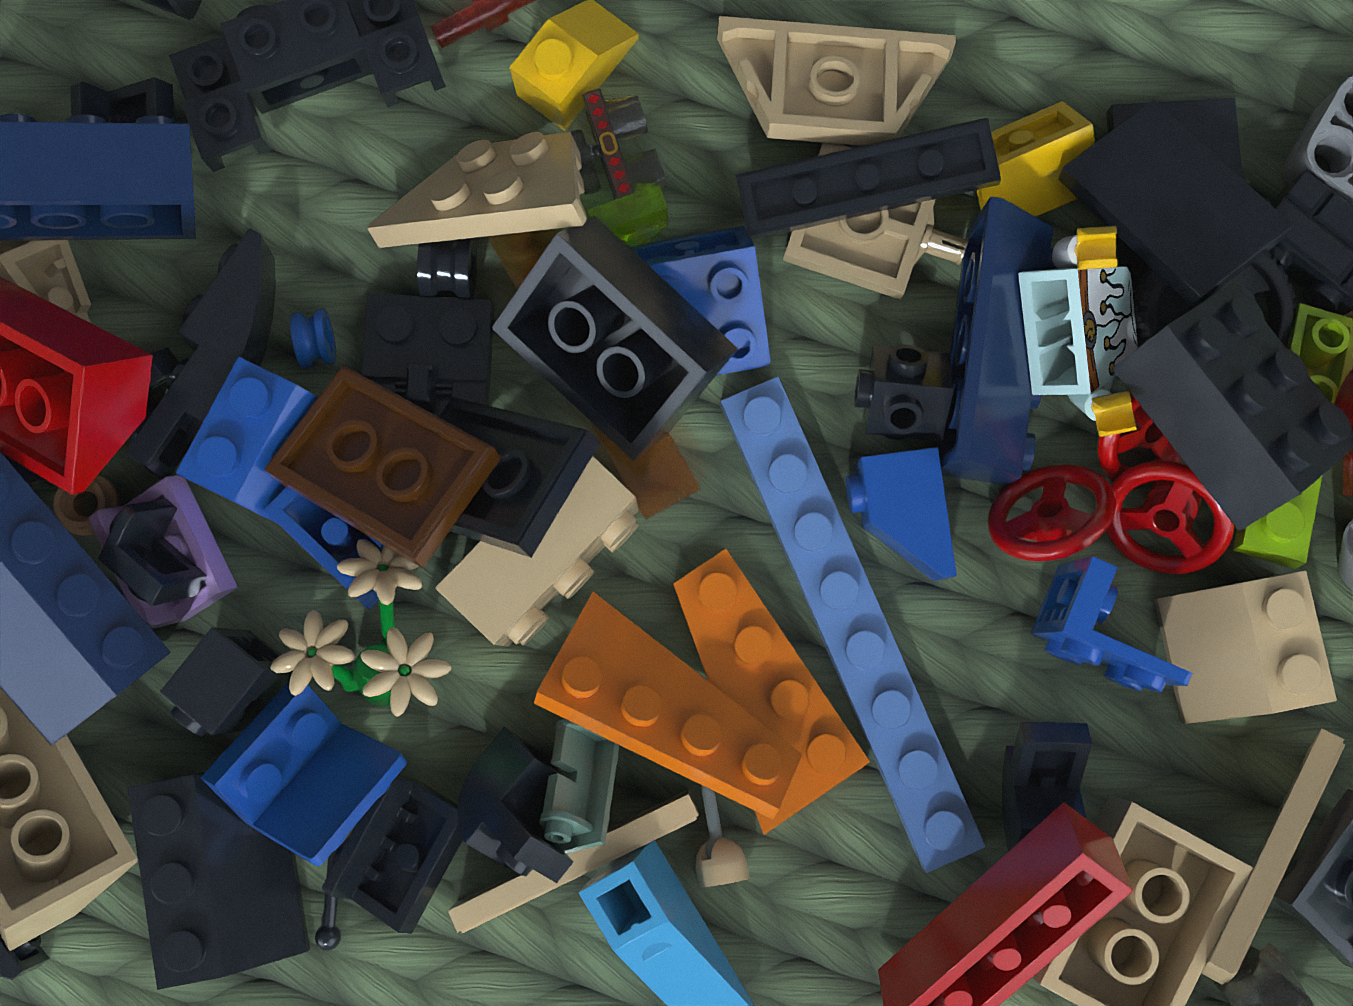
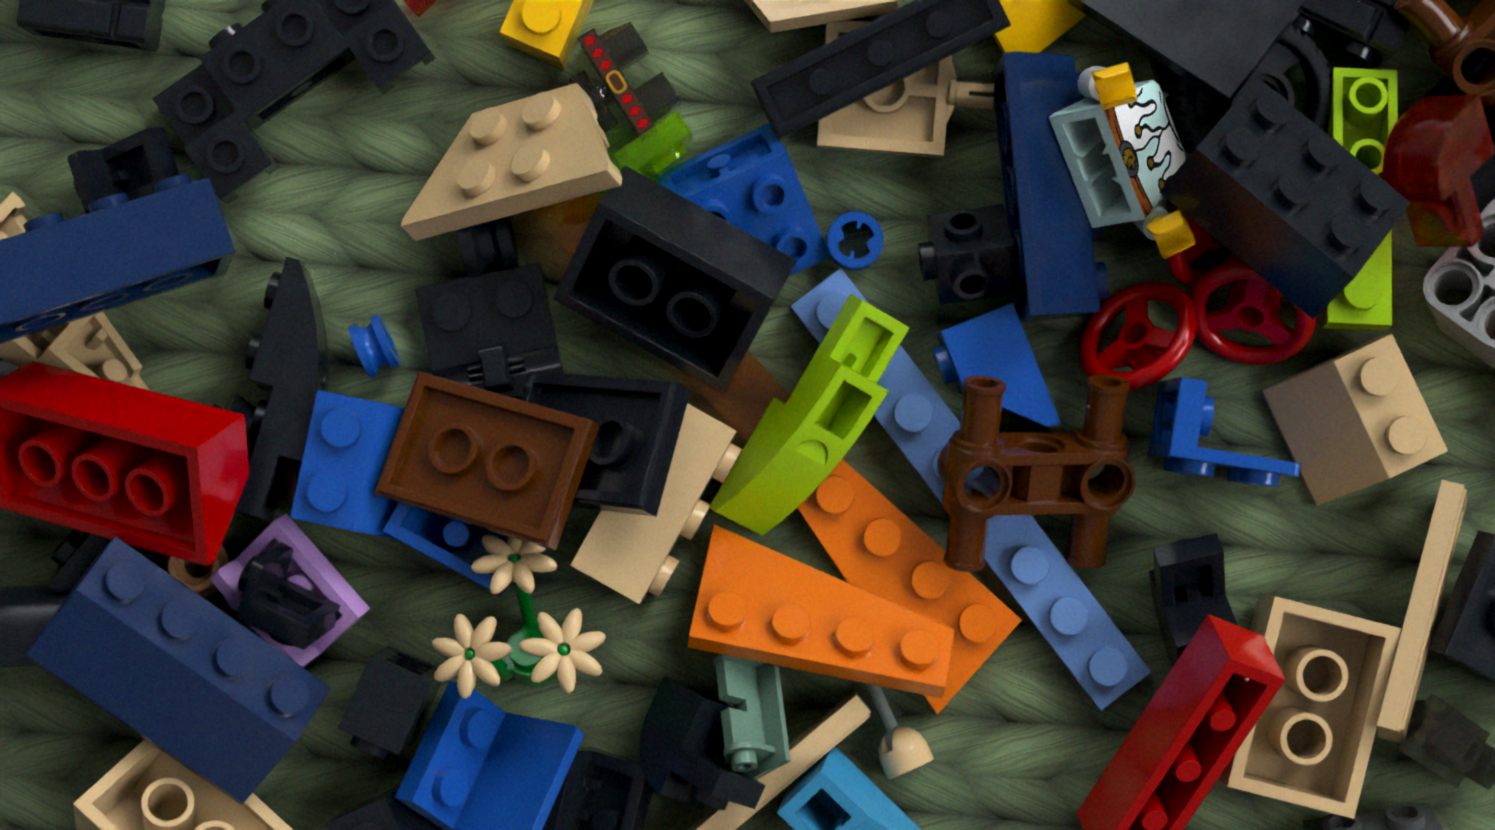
camera: 10 degrees left, 5 degrees up
(719, 516) = (818, 424): none -> lime slope
(814, 364) = (873, 245): none -> blue bush
(920, 617) = (1035, 472): none -> reddish brown piece

